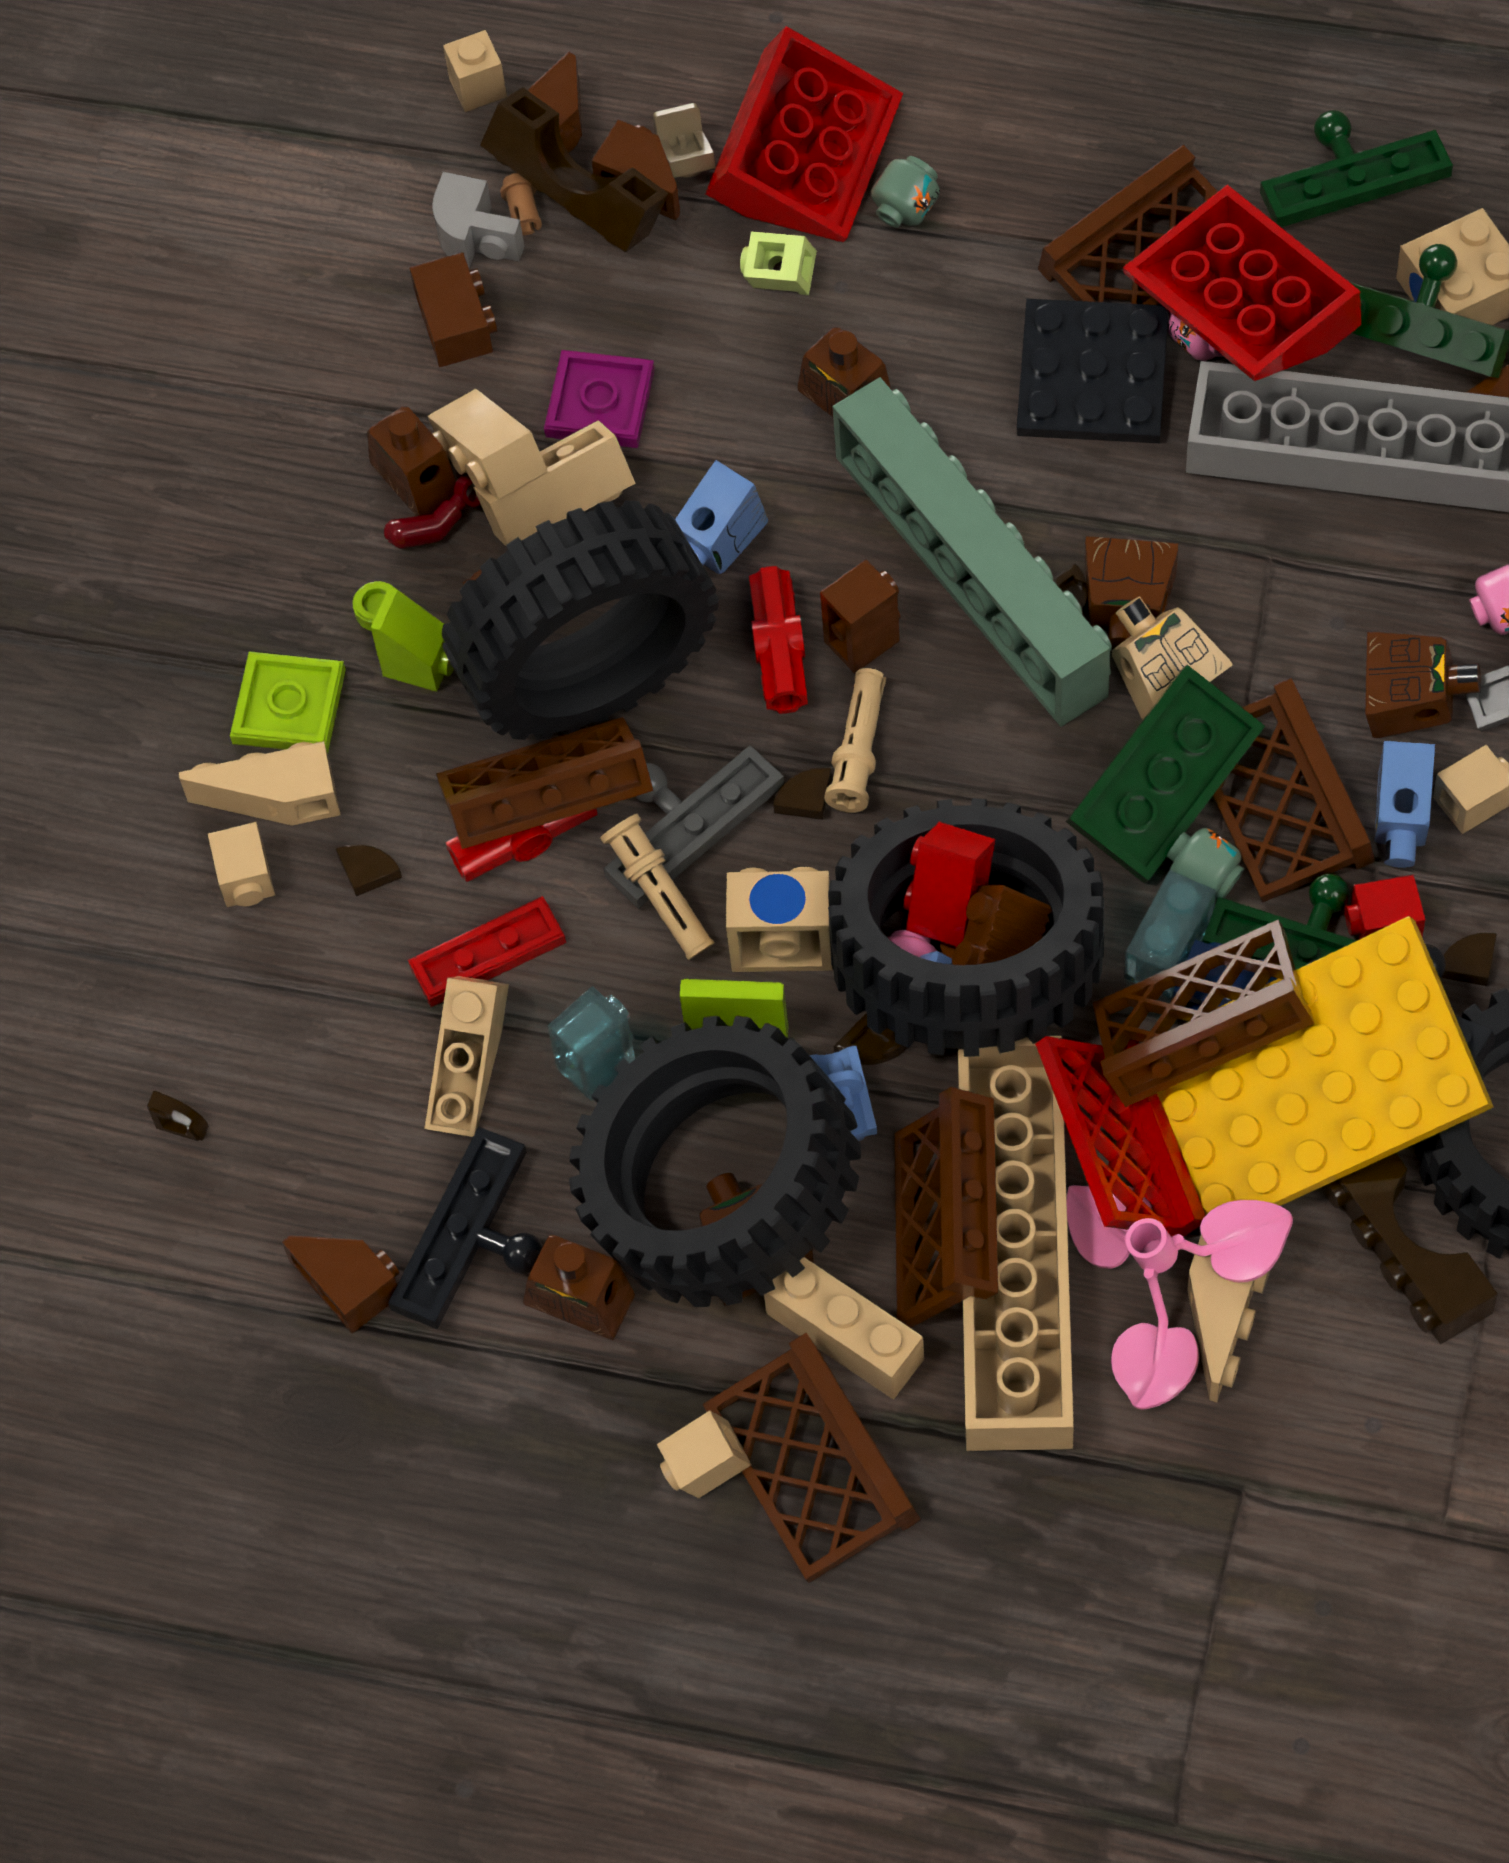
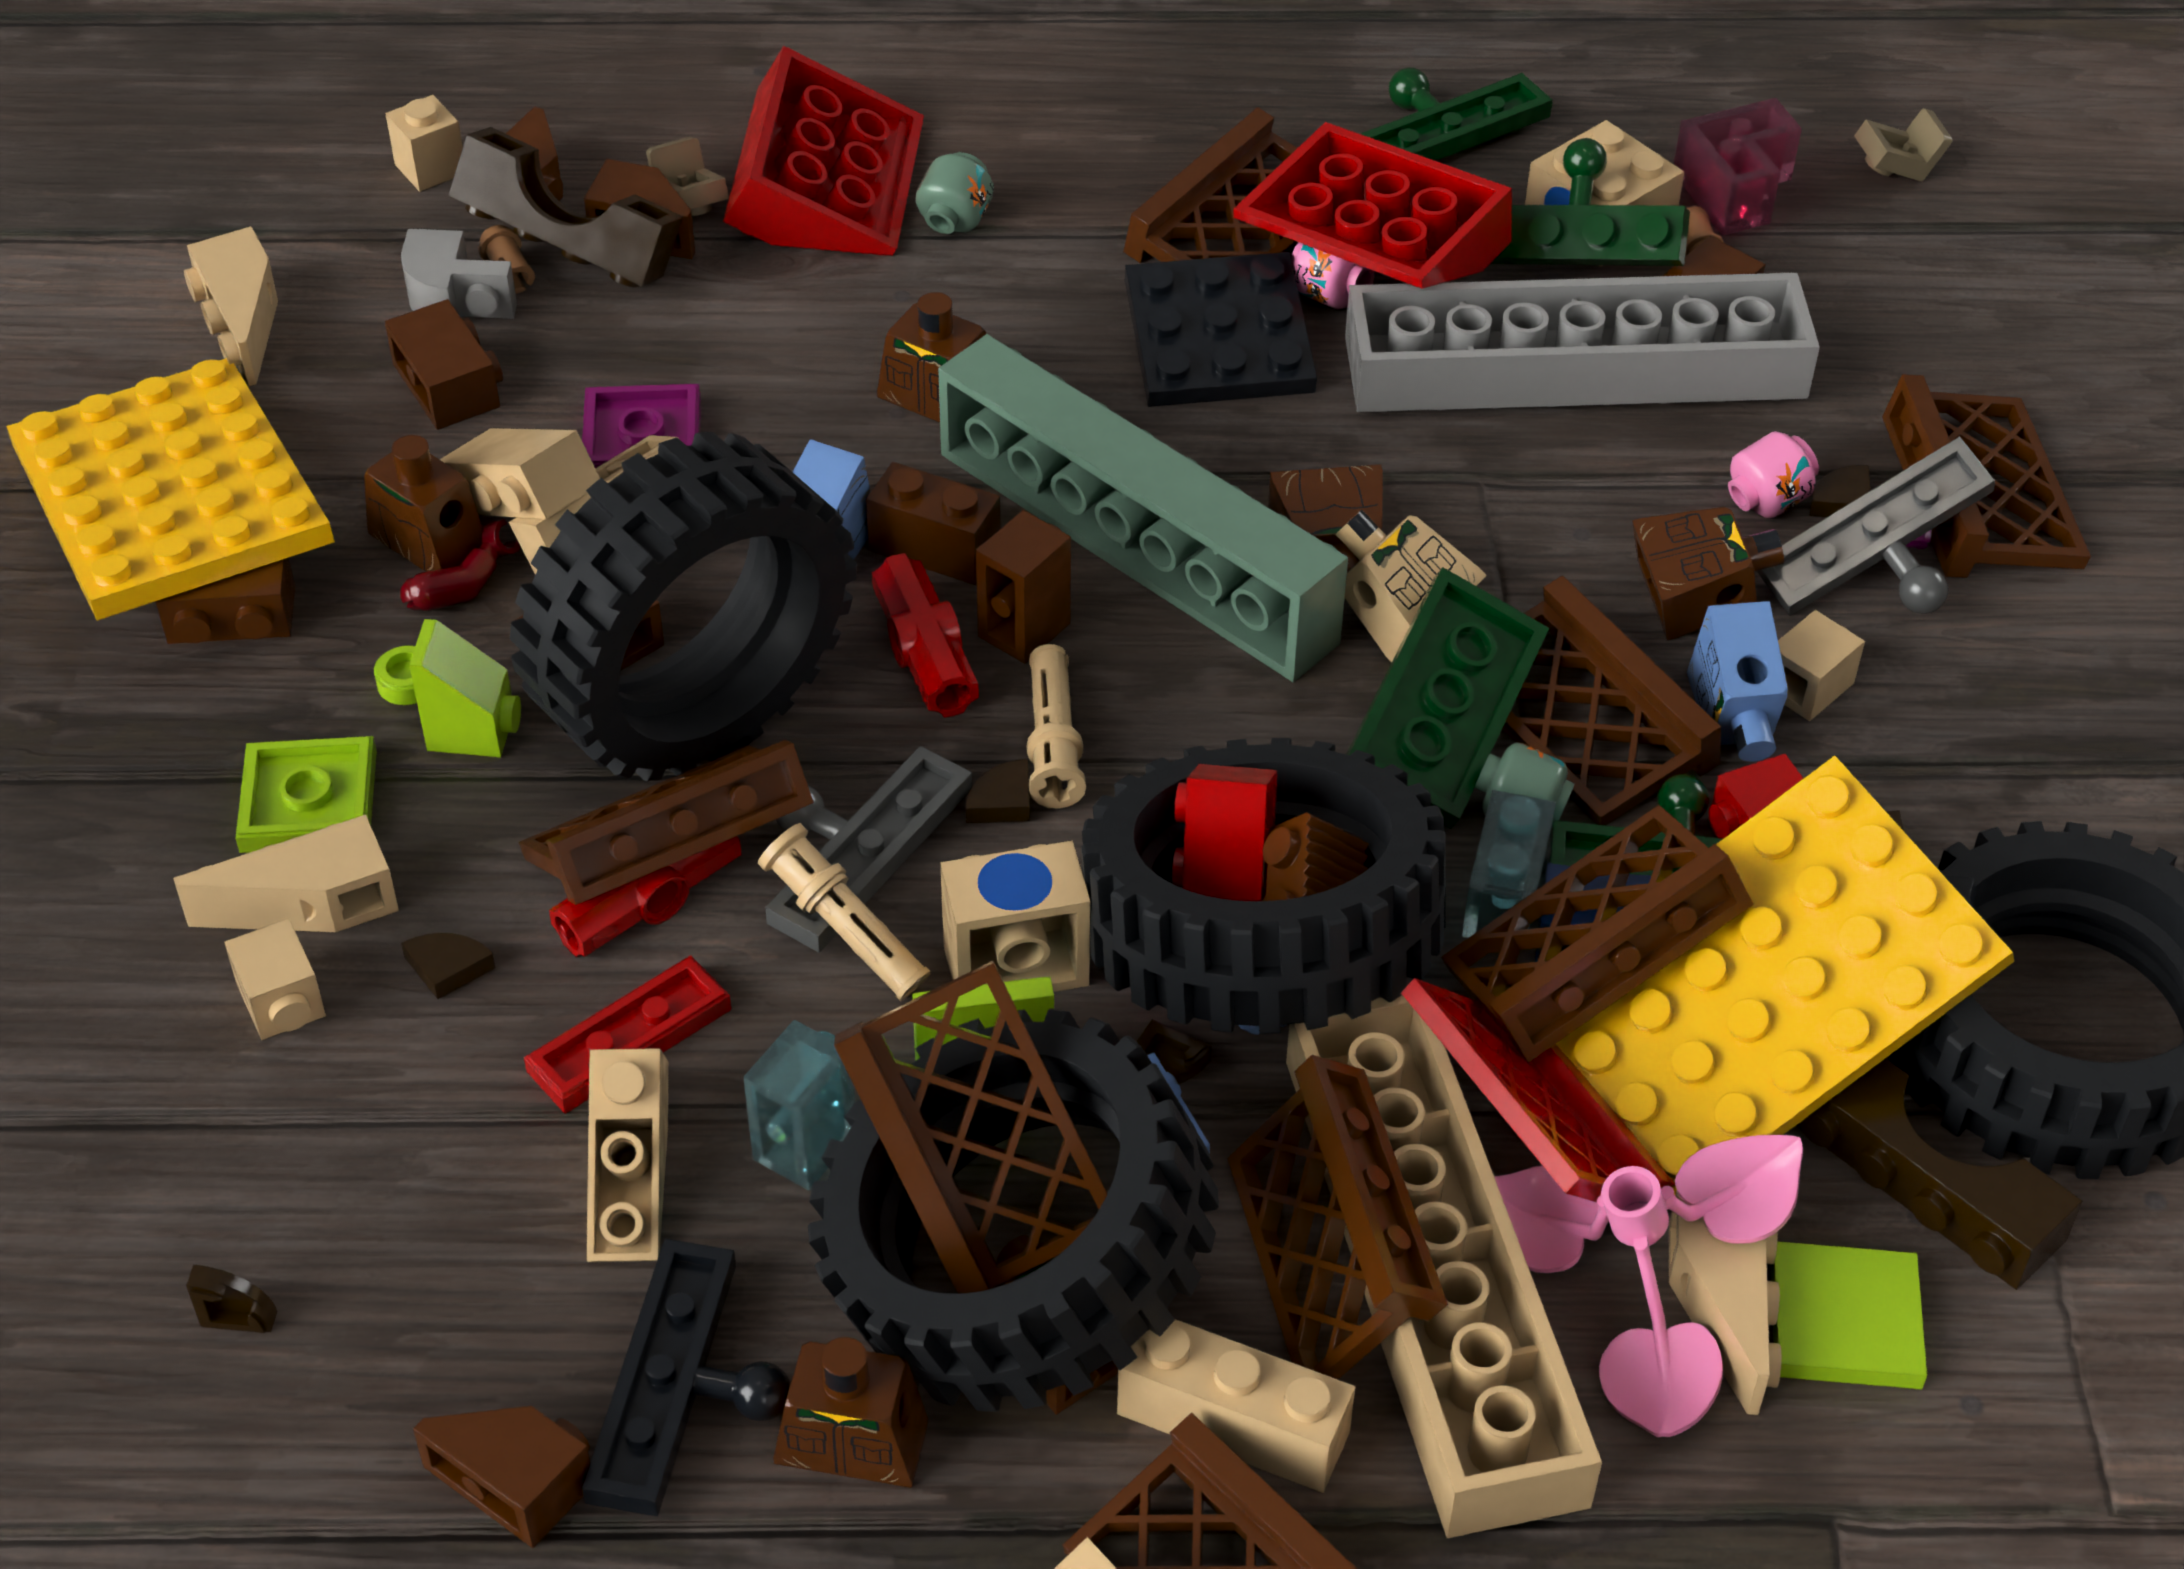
camera: 20 degrees left, 15 degrees down
(219, 402) = (167, 487): none -> yellow plate
(251, 511) = (234, 608): none -> reddish brown brick
(303, 214) = (238, 296): none -> tan slope
(651, 1107) = (913, 1144): none -> reddish brown fence
(770, 248) = (825, 271): yellowish green brick -> none
(807, 534) = (931, 520): none -> reddish brown brick
(1304, 1341) = (1849, 1315): none -> lime tile

